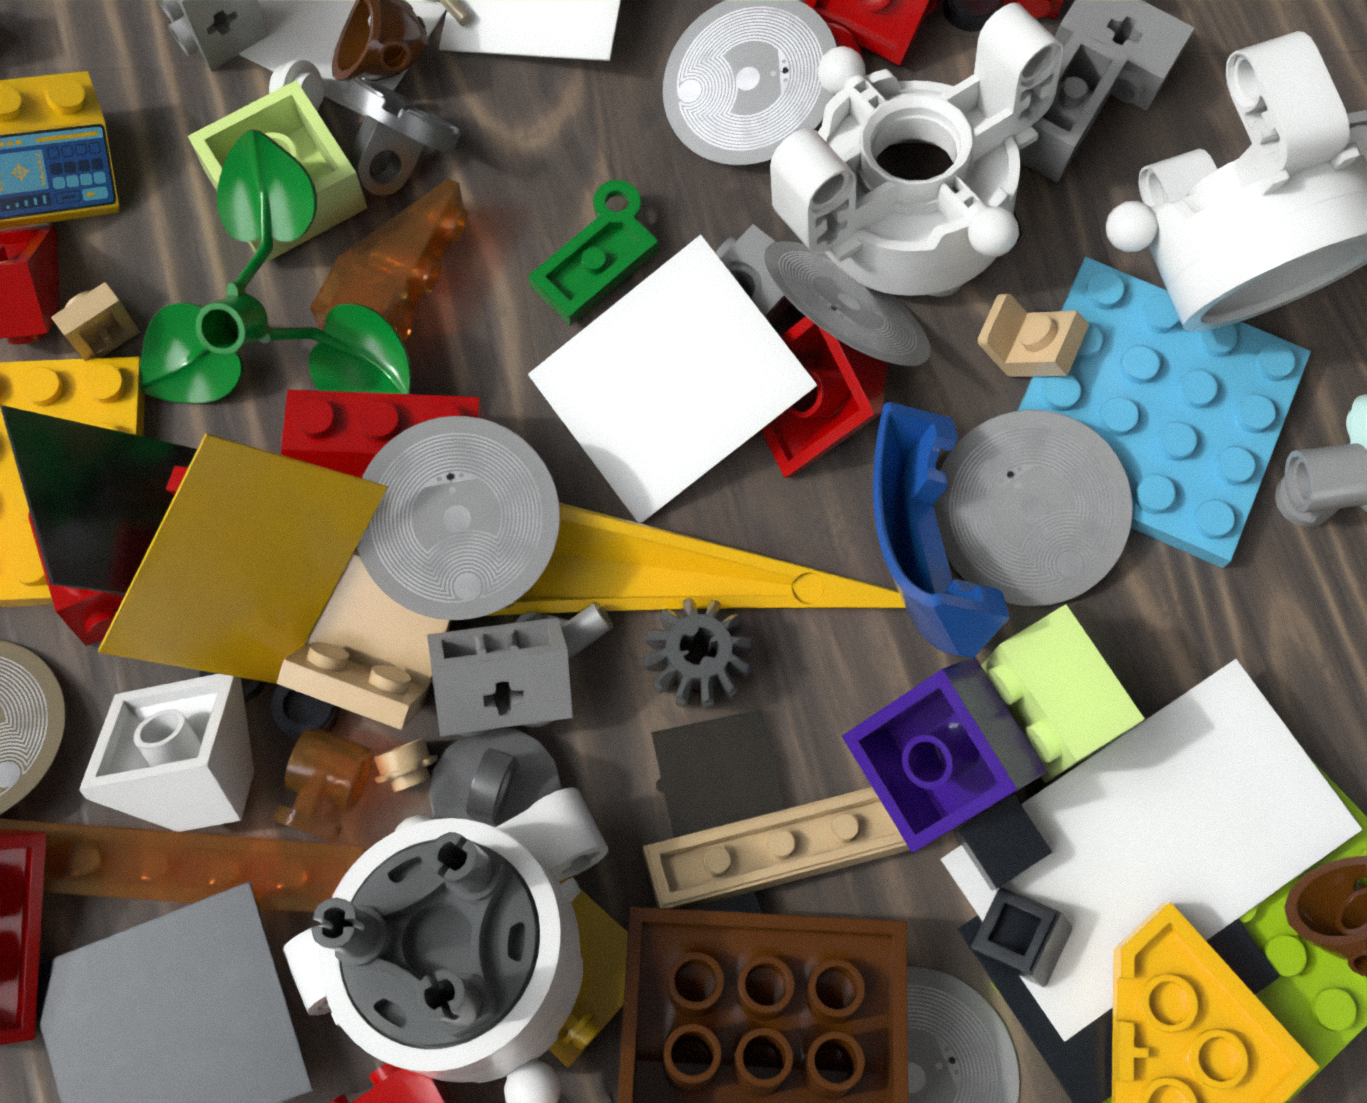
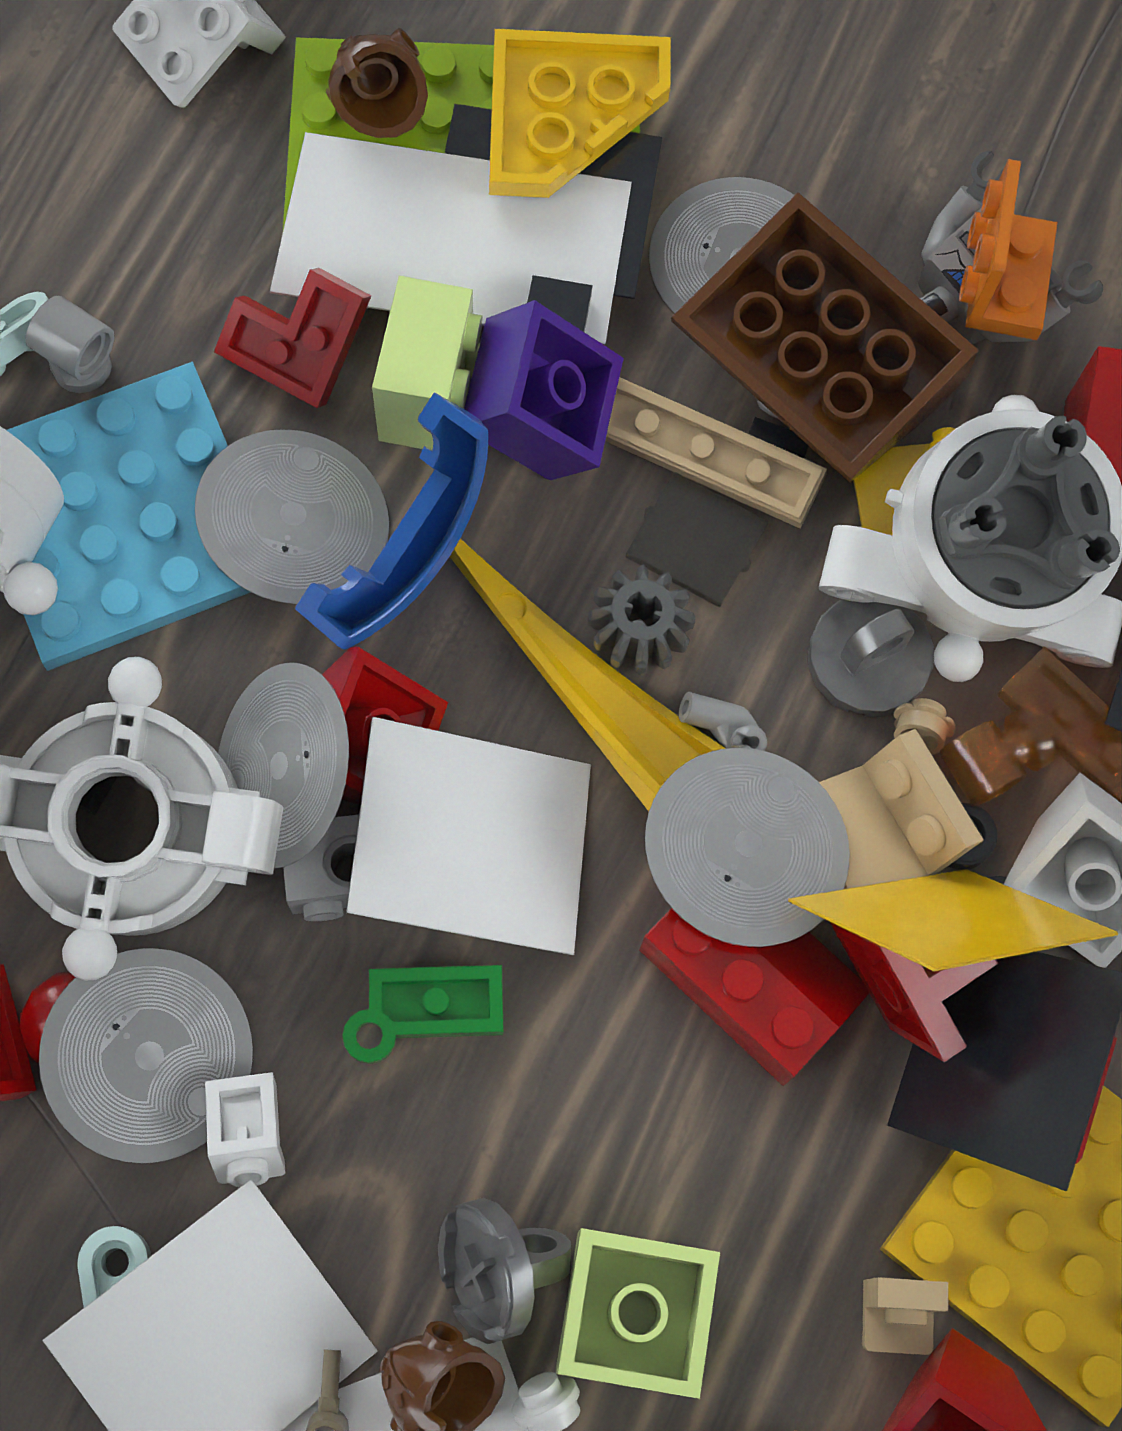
camera: 140 degrees left, 0 degrees up
(194, 348) = (841, 1205): green plant -> none
(397, 260) = (625, 1138): clear orange slope -> none
(500, 677) = (806, 714): light grey brick -> none
(645, 86) = (243, 1129): none -> white bracket
(1022, 936) = (601, 252): black slope -> none
(1031, 342) = (159, 626): tan bracket -> none
(1166, 641) = (298, 352): none -> red plate

